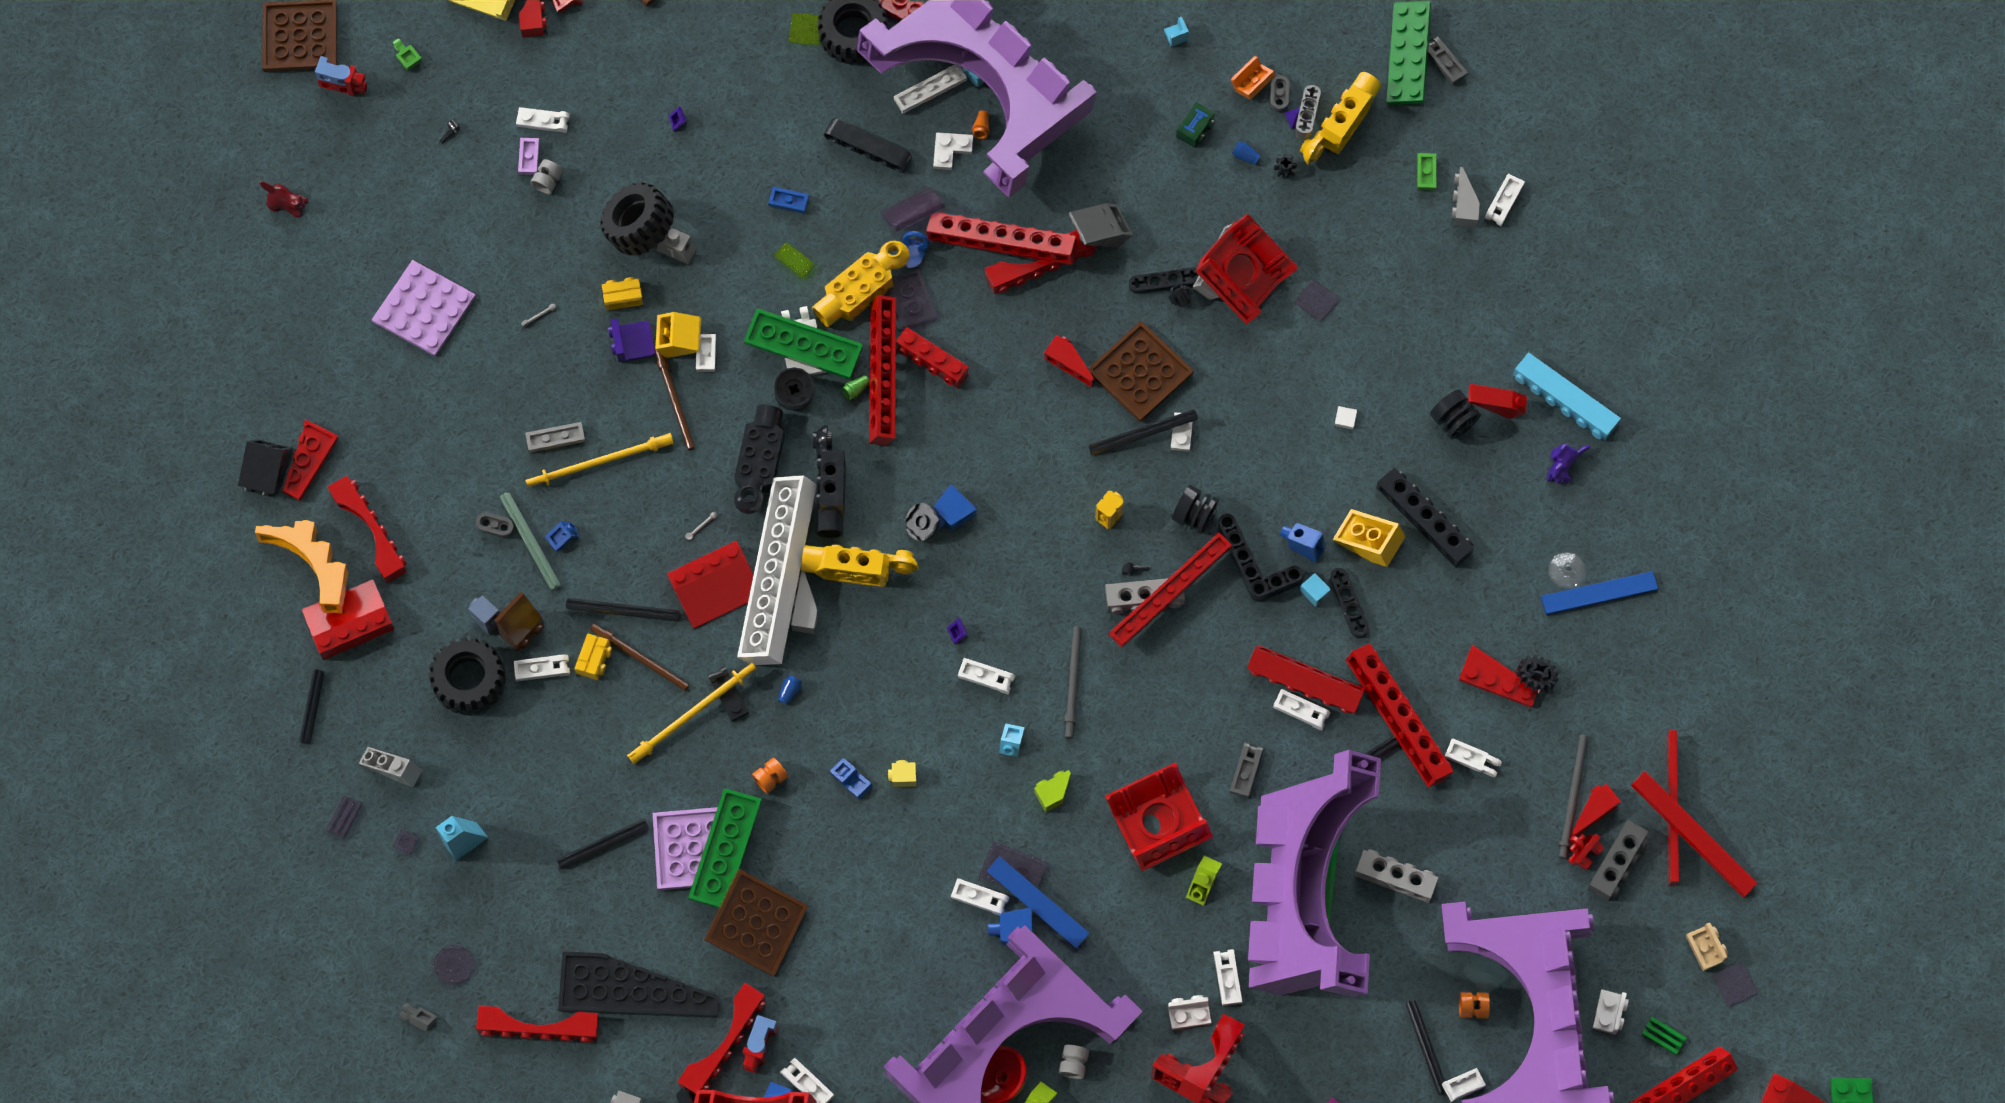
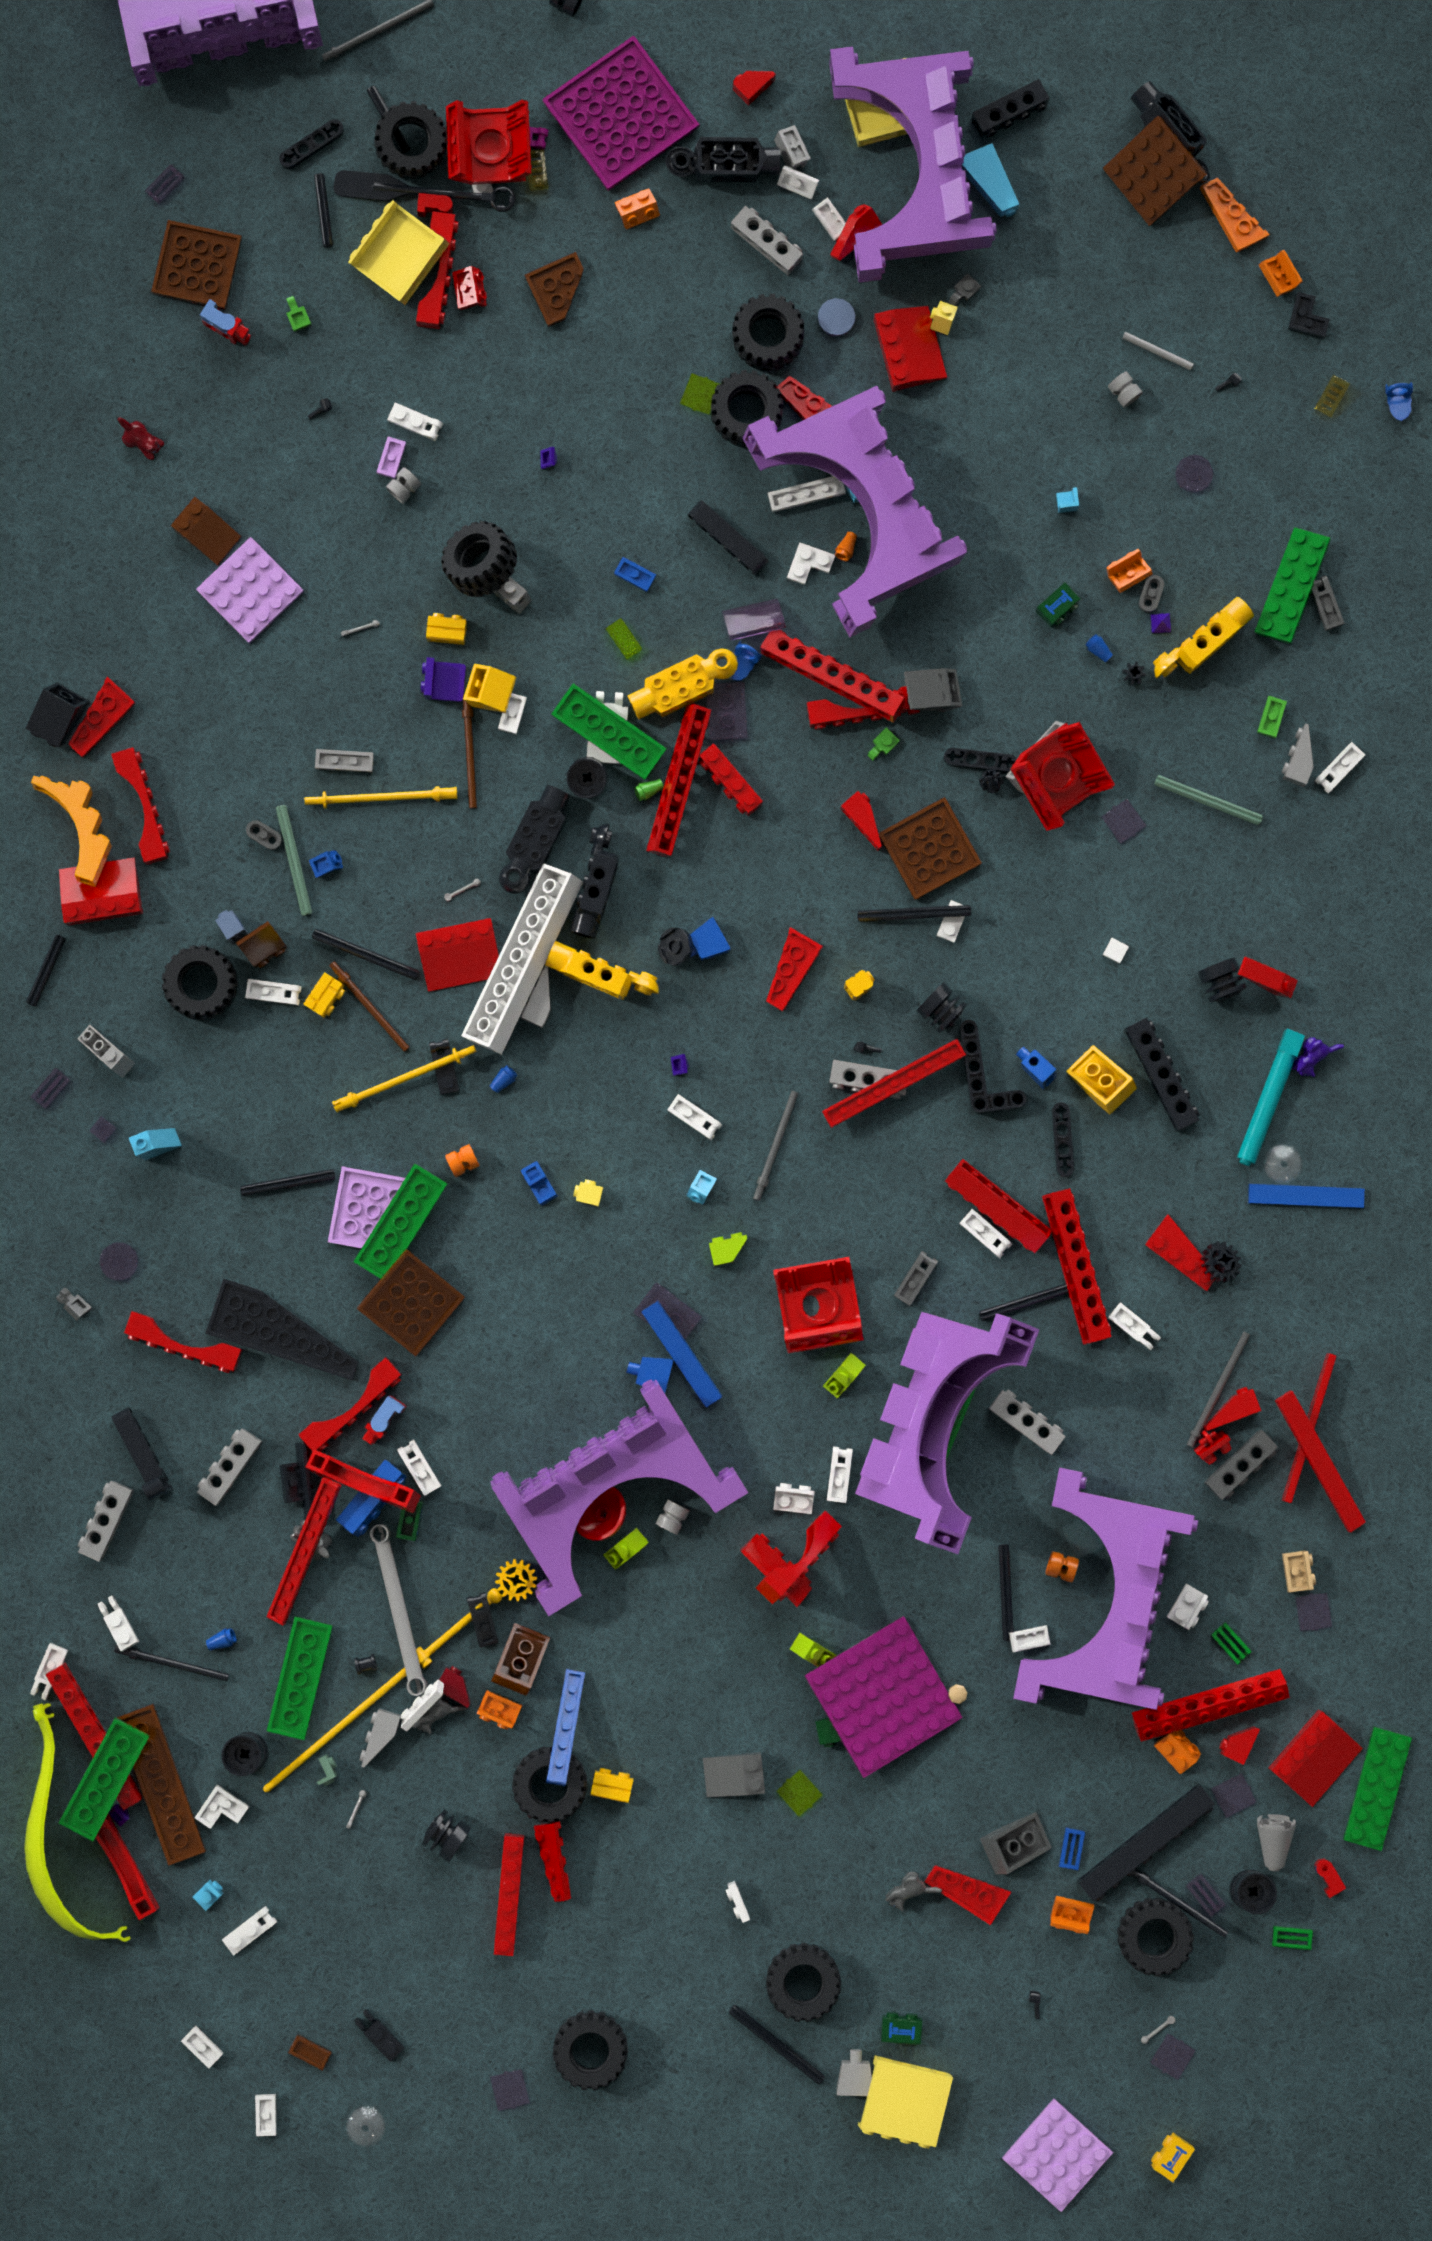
camera: 10 degrees right, 15 degrees up
(367, 265) = (205, 531): none -> reddish brown slope
(979, 896) = (628, 1332): white plate -> none
(1041, 512) = (796, 960): none -> red wing
(1068, 289) = (884, 743): none -> bright green plate
(1307, 112) = (1171, 623): dark grey beam -> none
(1314, 589) = (1033, 1118): medium azure panel -> none
(1390, 260) = (1208, 800): none -> sand green axle
(1535, 510) = (1270, 1096): none -> teal brick
(1566, 397) = (1336, 989): medium azure brick -> none

